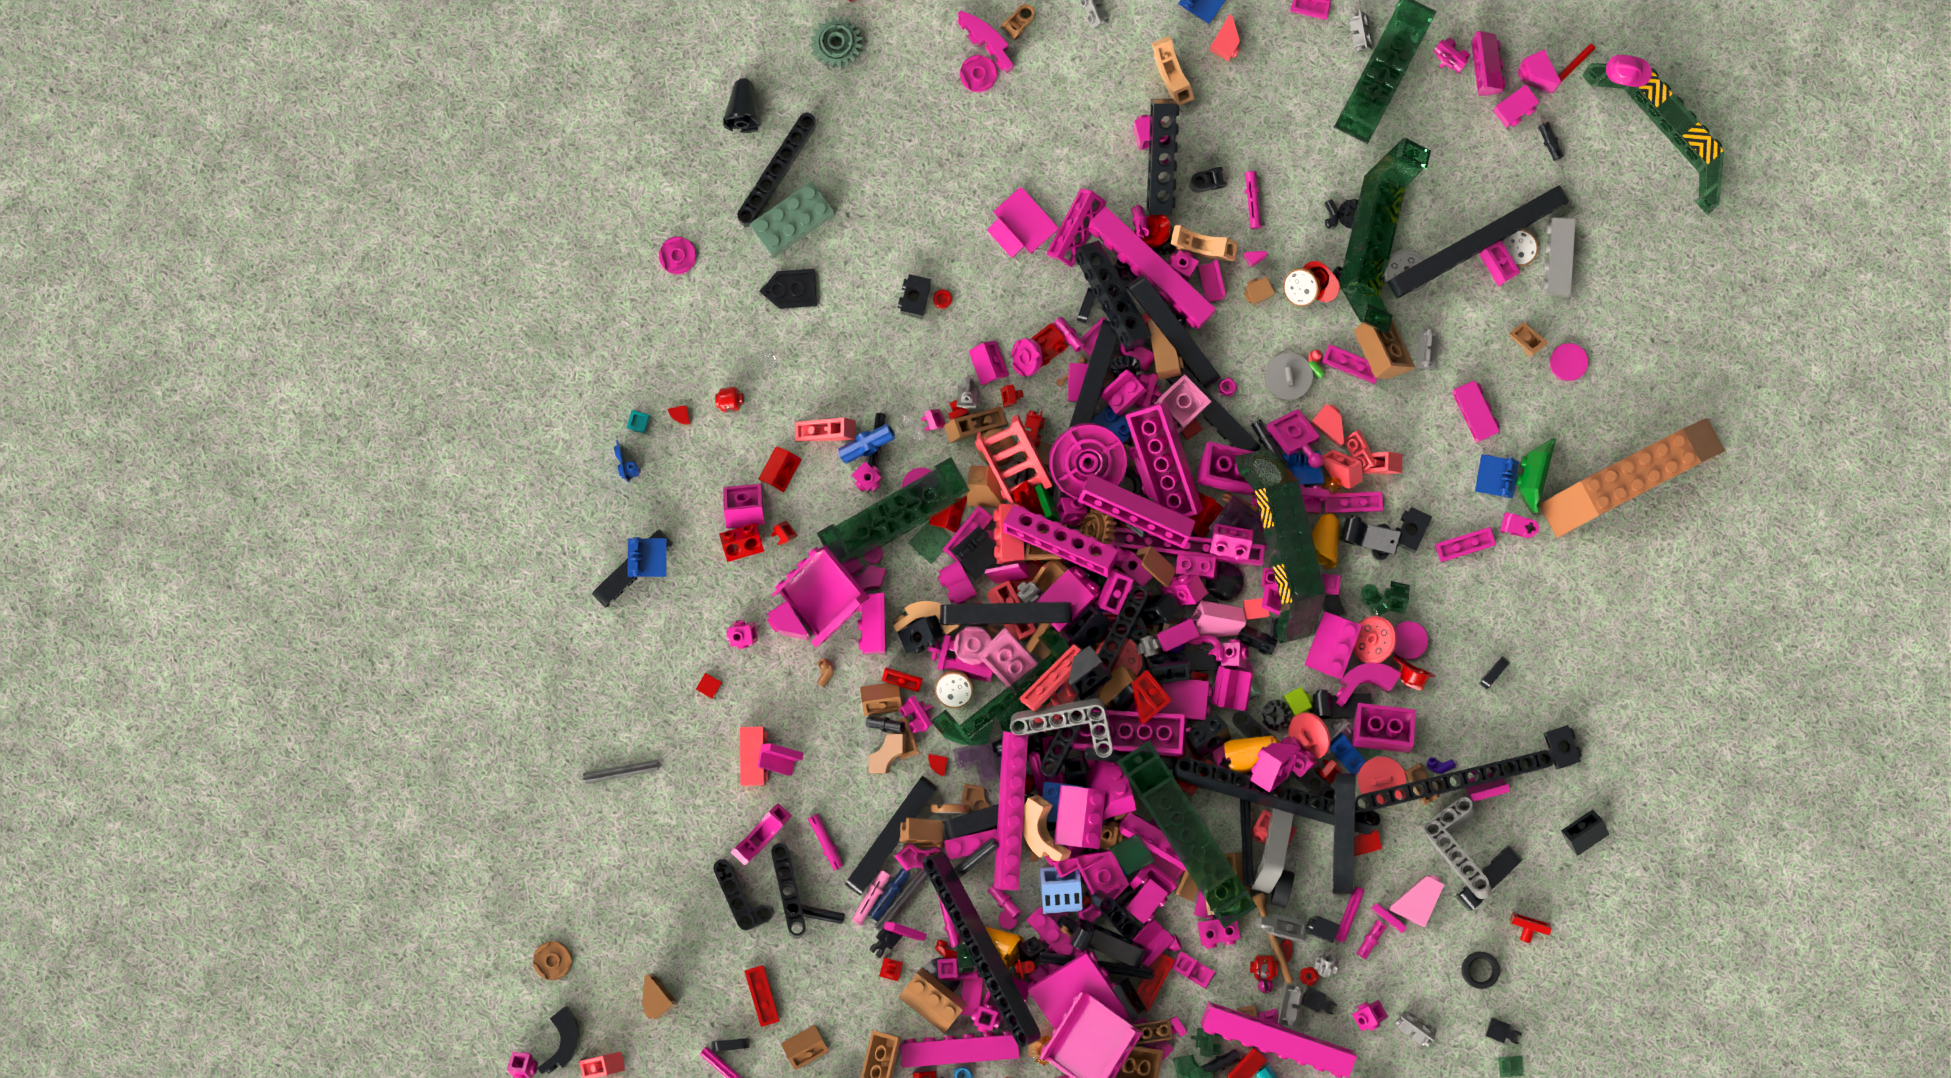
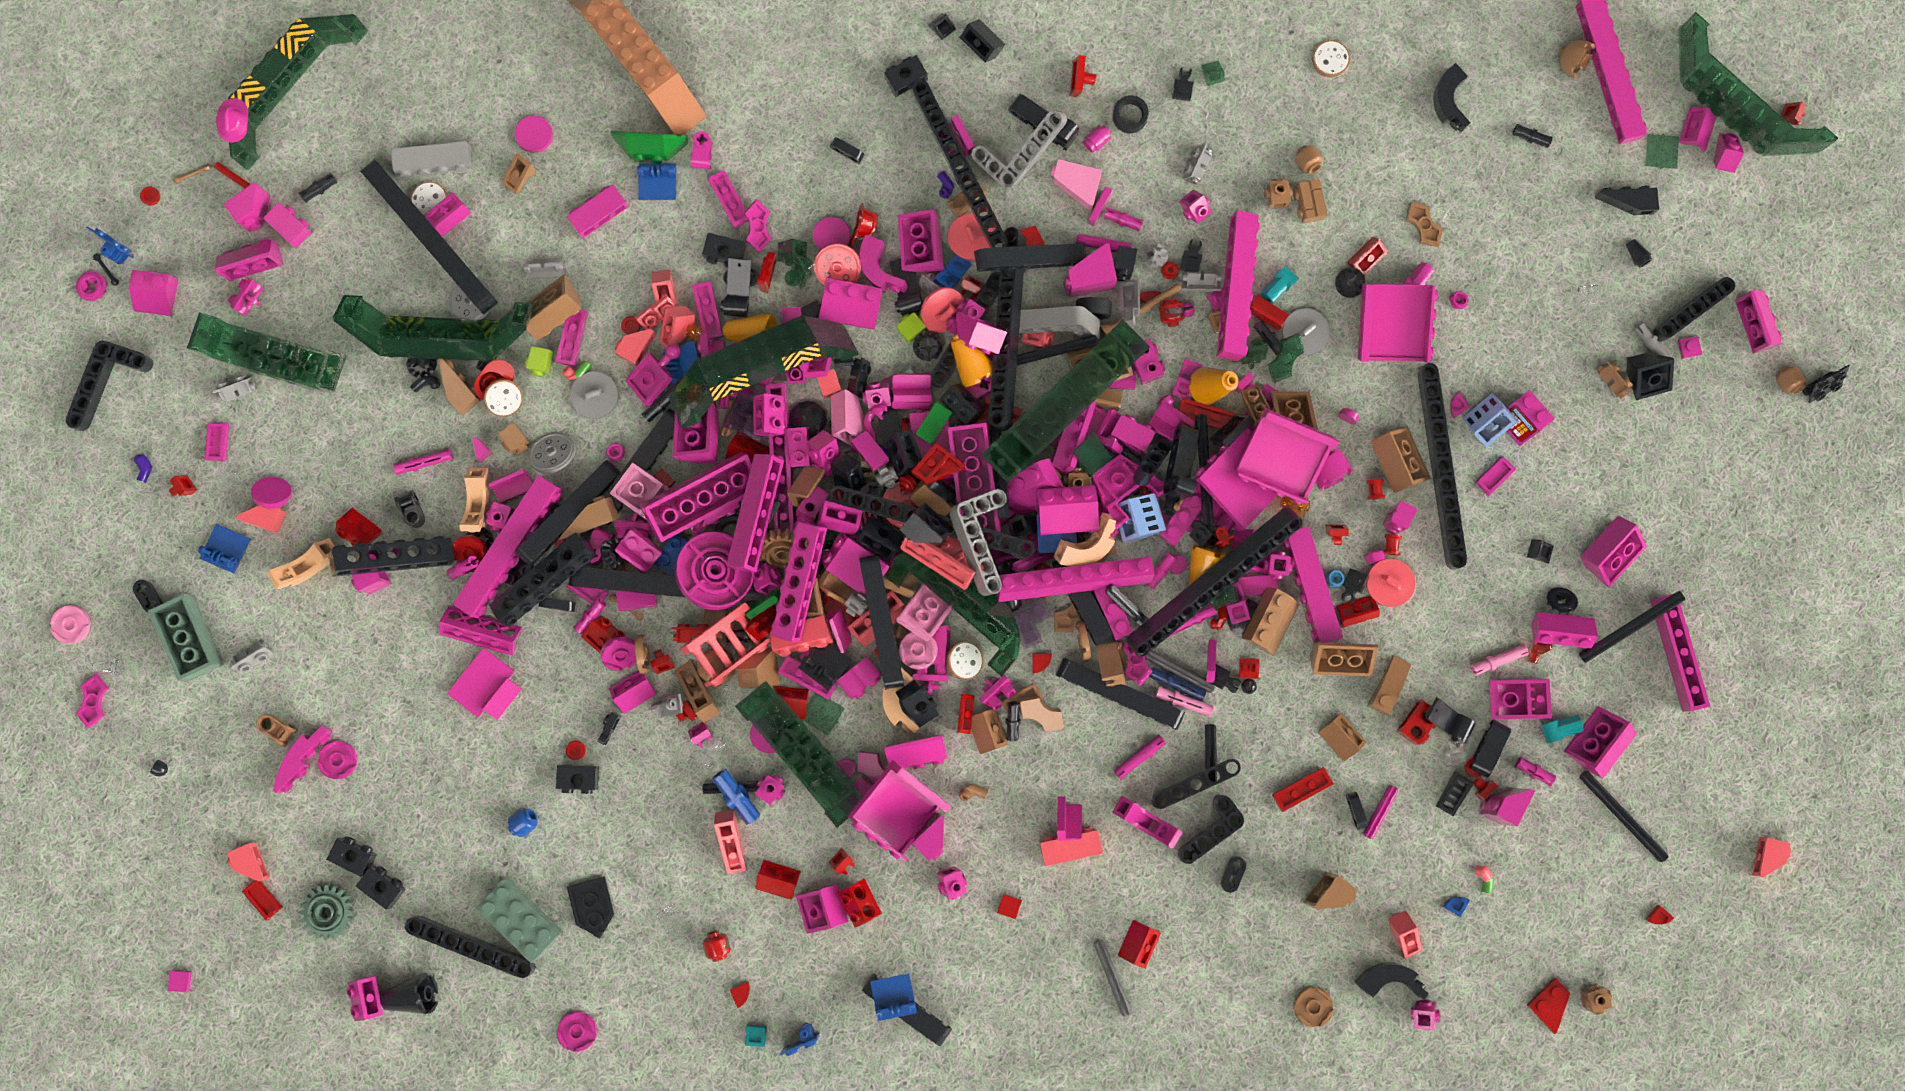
camera: 100 degrees left, 0 degrees up
(646, 804) = (1139, 944): none -> red panel
(691, 913) = (1229, 872): none -> black beam
(749, 65) = (364, 998): none -> dark pink brick
(855, 86) = (370, 886): none -> black brick
(871, 969) = (1244, 686): none -> black hinge
(883, 237) = (522, 822): none -> blue head
(888, 63) = (341, 855): none -> black brick
(961, 336) = (610, 724): none -> black plate
(1022, 378) = (642, 654): none -> medium nougat tile
(1137, 665) = (907, 483): none -> red plate
(1181, 990) = (1211, 384): none -> light orange cone
(1193, 703) = (933, 423): none -> green tile
(1198, 126) = (356, 528): none -> red bracket
(1238, 325) = (551, 452): none -> light grey shield
(1249, 51) = (271, 492): none -> dark pink tile
(1318, 893) = (1092, 274): none -> dark pink slope
(1319, 243) = (456, 390): none -> medium nougat slope
(1332, 328) = (539, 361): none -> lime brick
(1352, 423) = (630, 325): none -> red tile
(1385, 570) = (766, 273): none -> red wing
(1440, 569) = (757, 217): none -> dark pink tile
(1461, 930) = (1097, 138): none -> dark pink brick
(1591, 35) = (177, 180): none -> medium nougat hinge
(1610, 795) = (942, 26): none -> black slope

